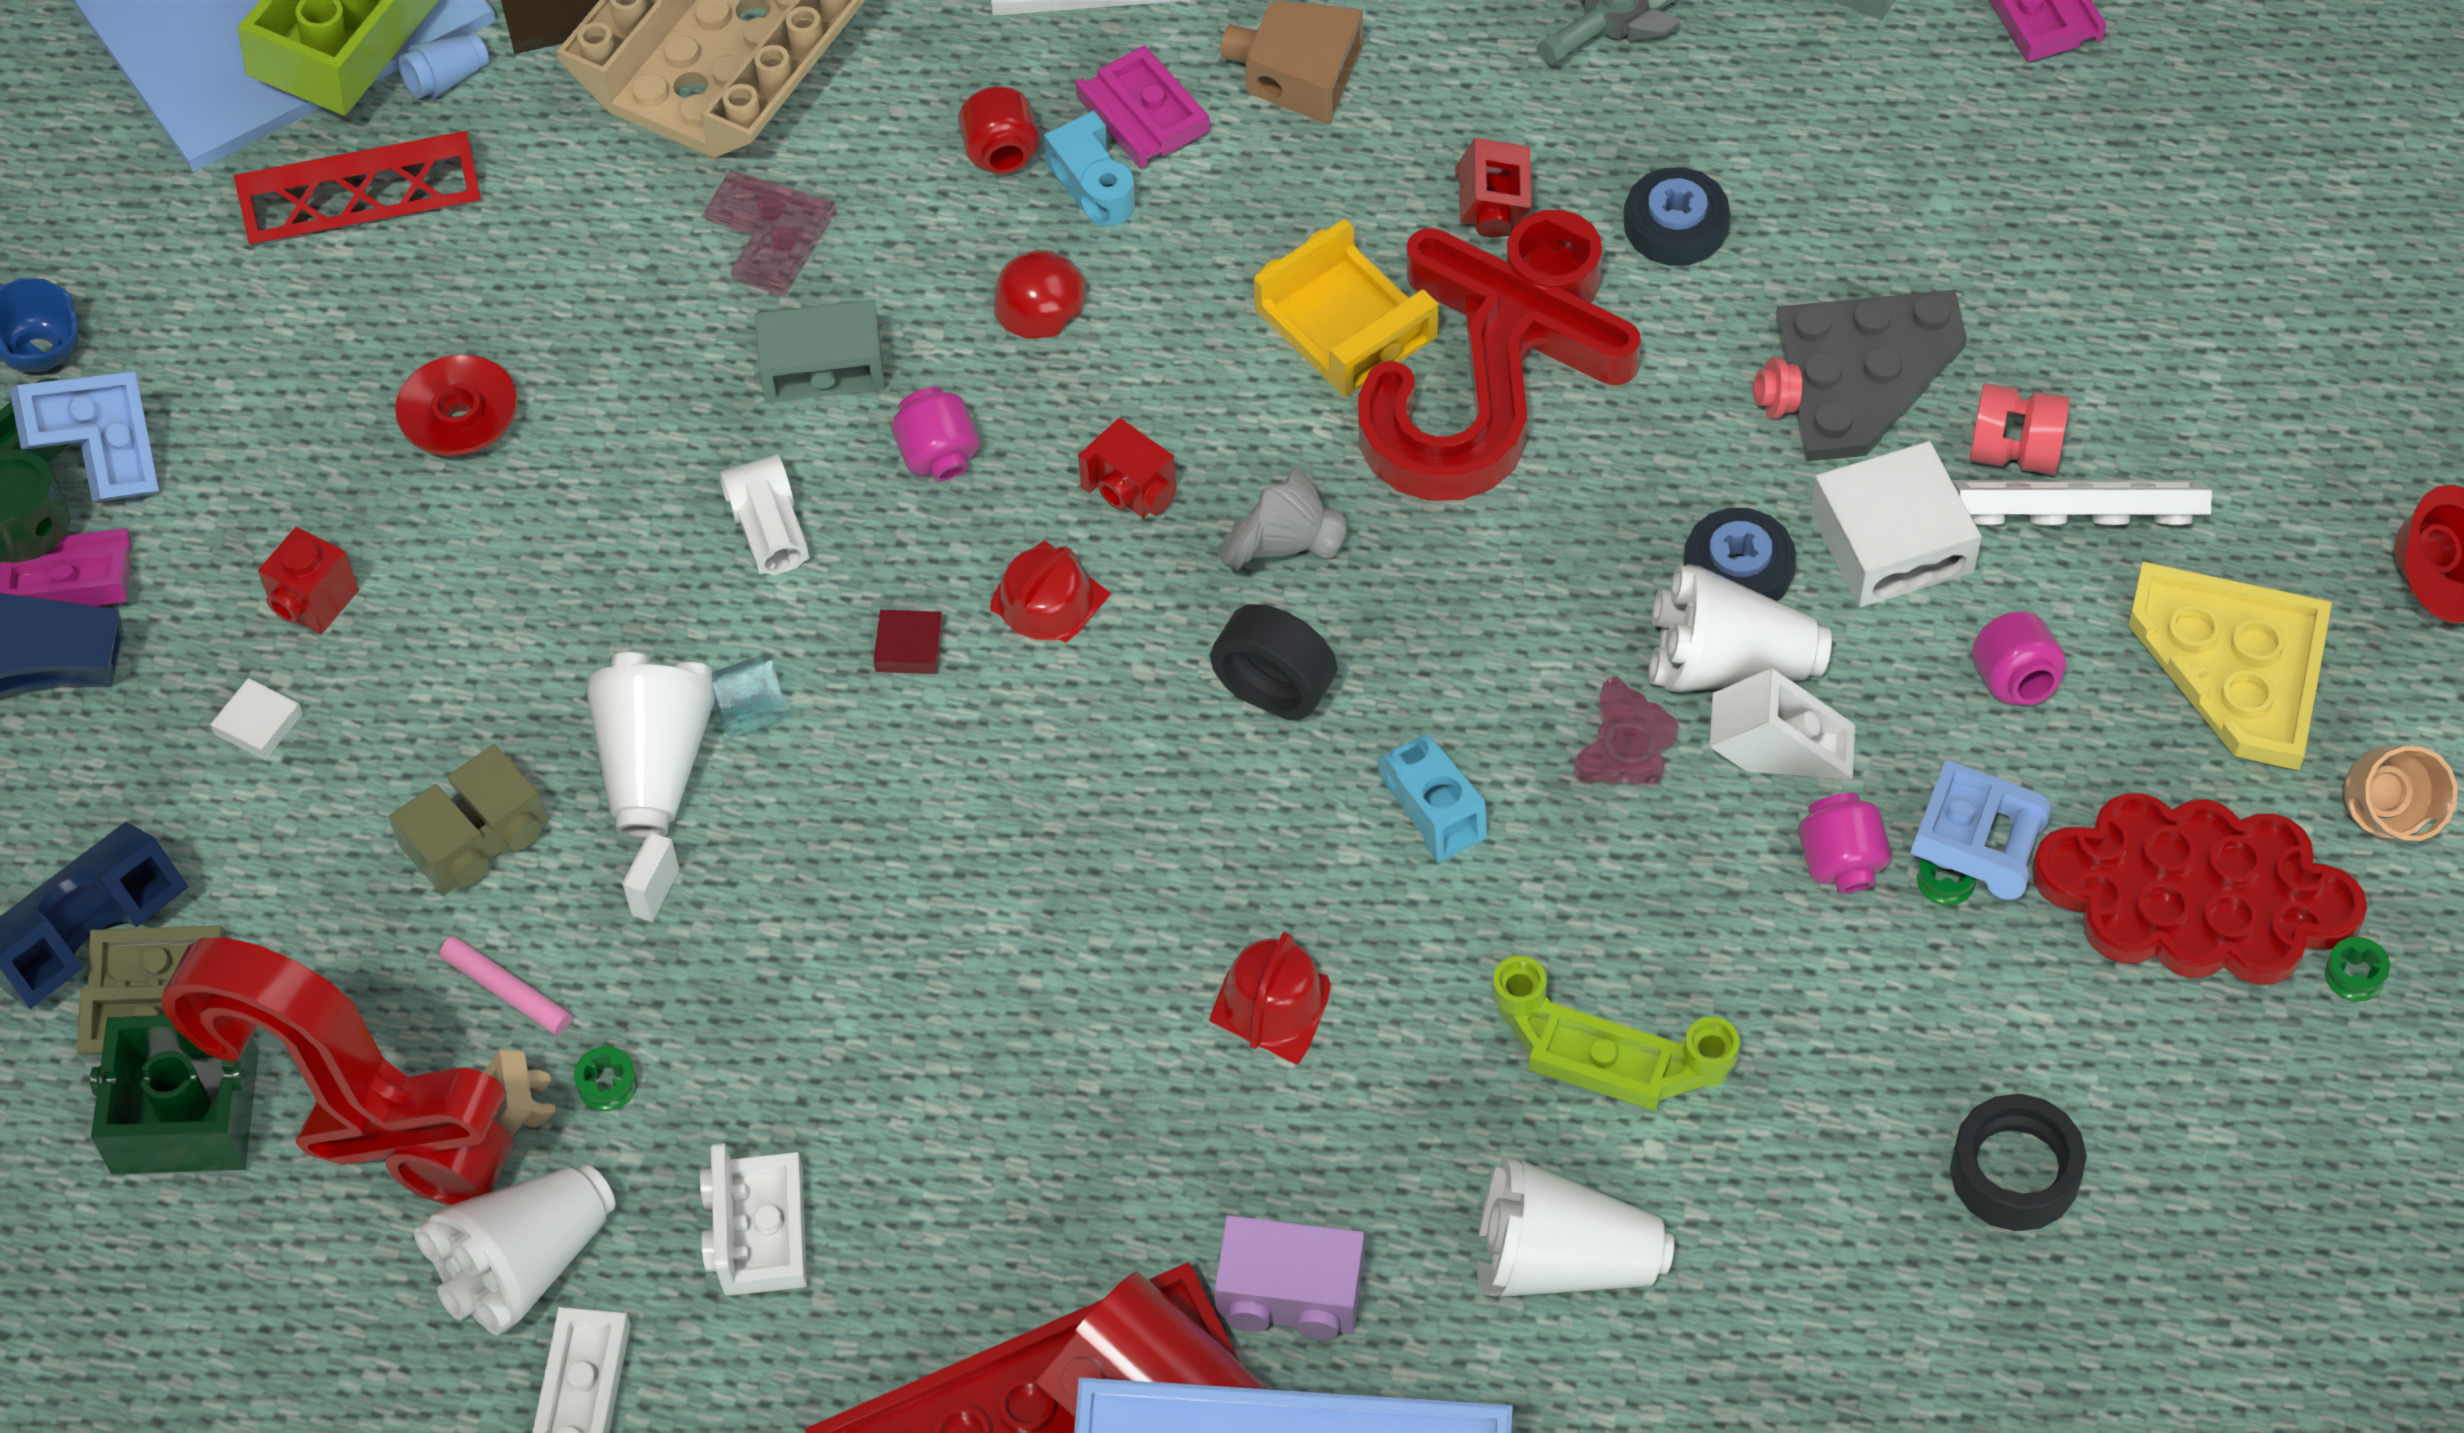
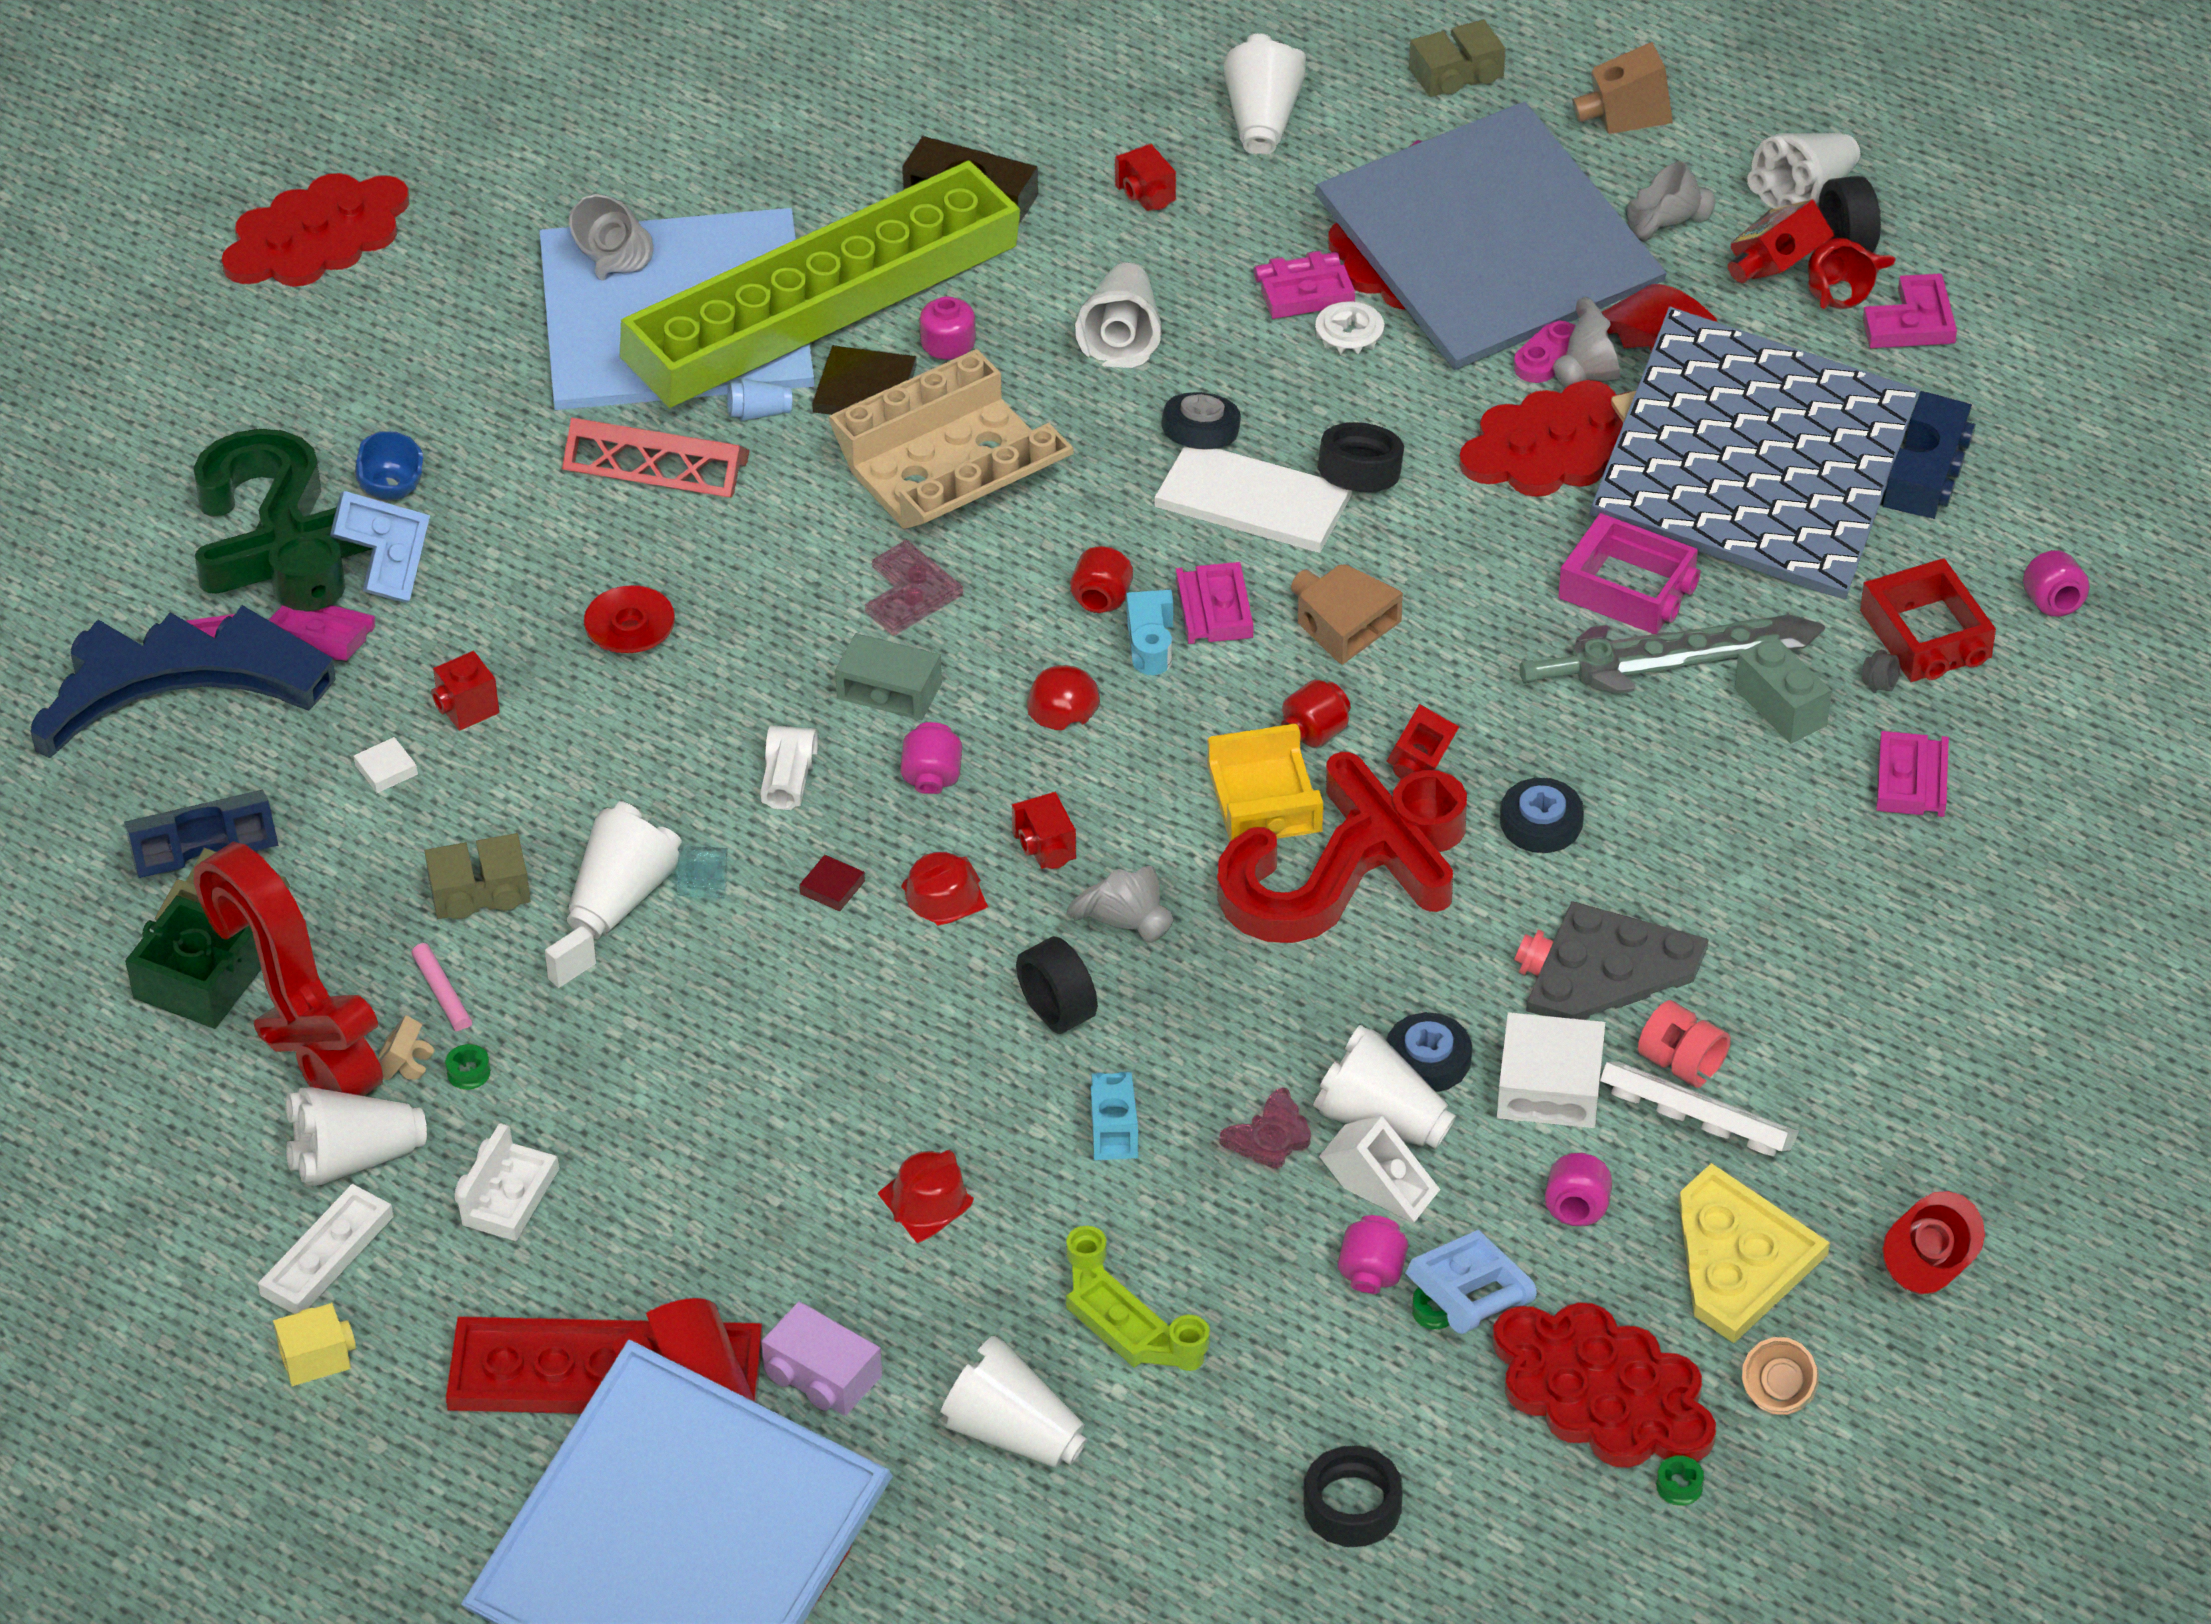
camera: 25 degrees right, 10 degrees down
(1351, 189) = (1318, 710): none -> red head

